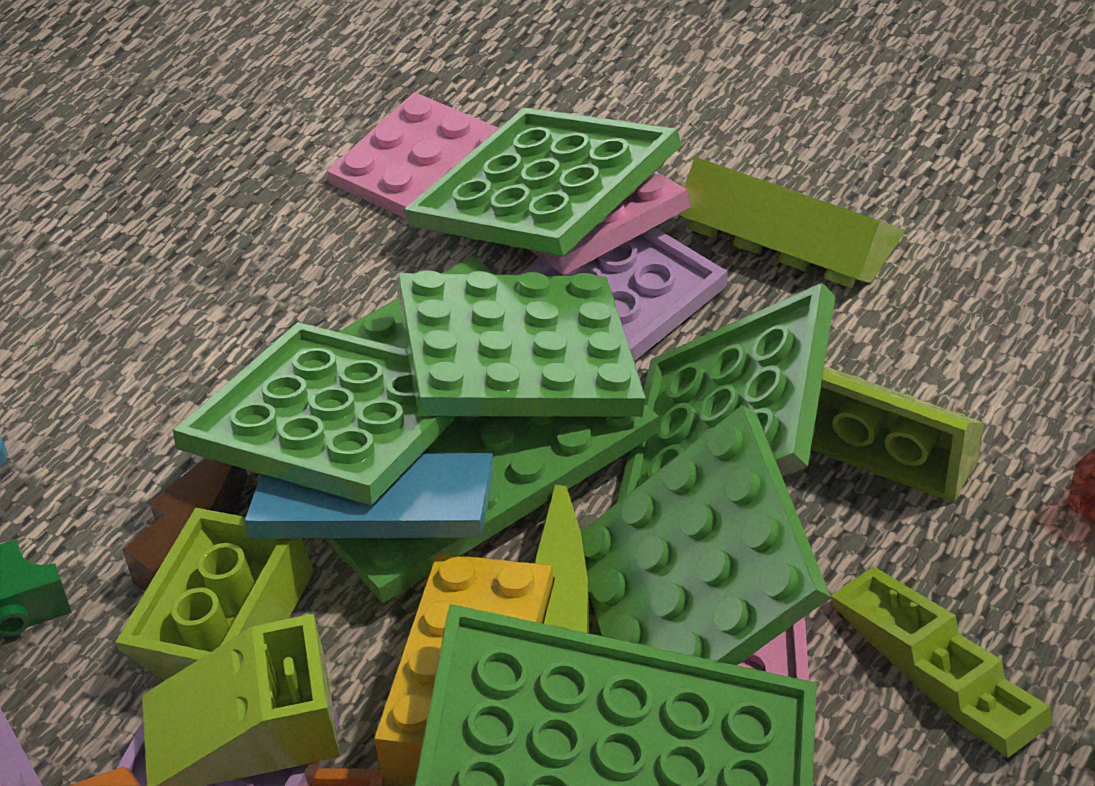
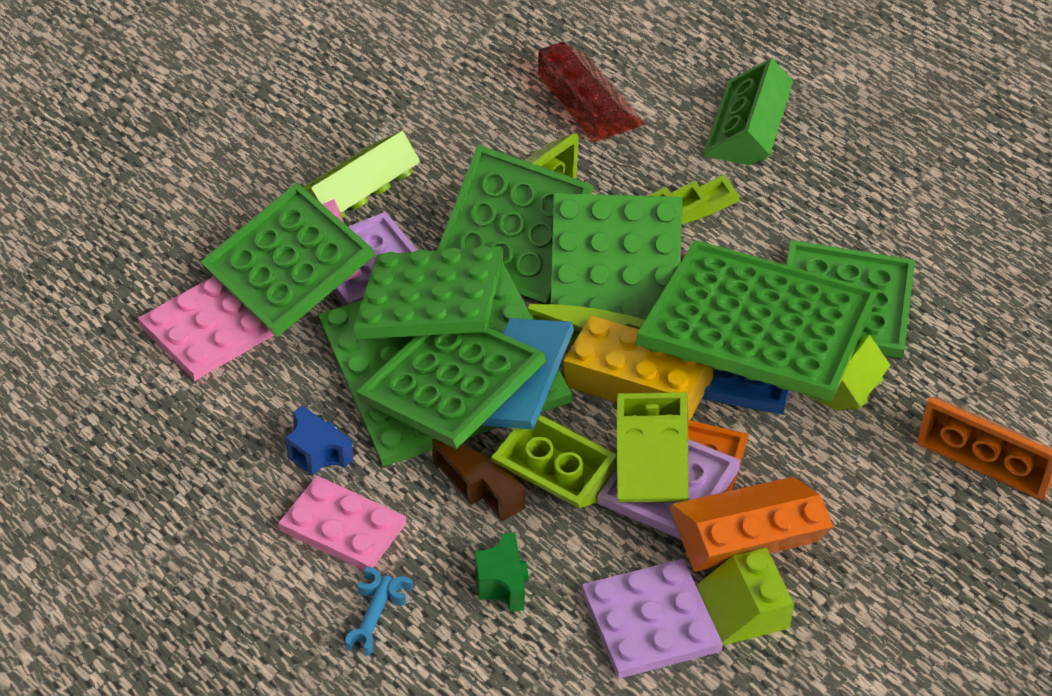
camera: 80 degrees left, 0 degrees up
(88, 398) = (342, 523): none -> bright pink plate
(222, 321) = (317, 443): none -> blue brick

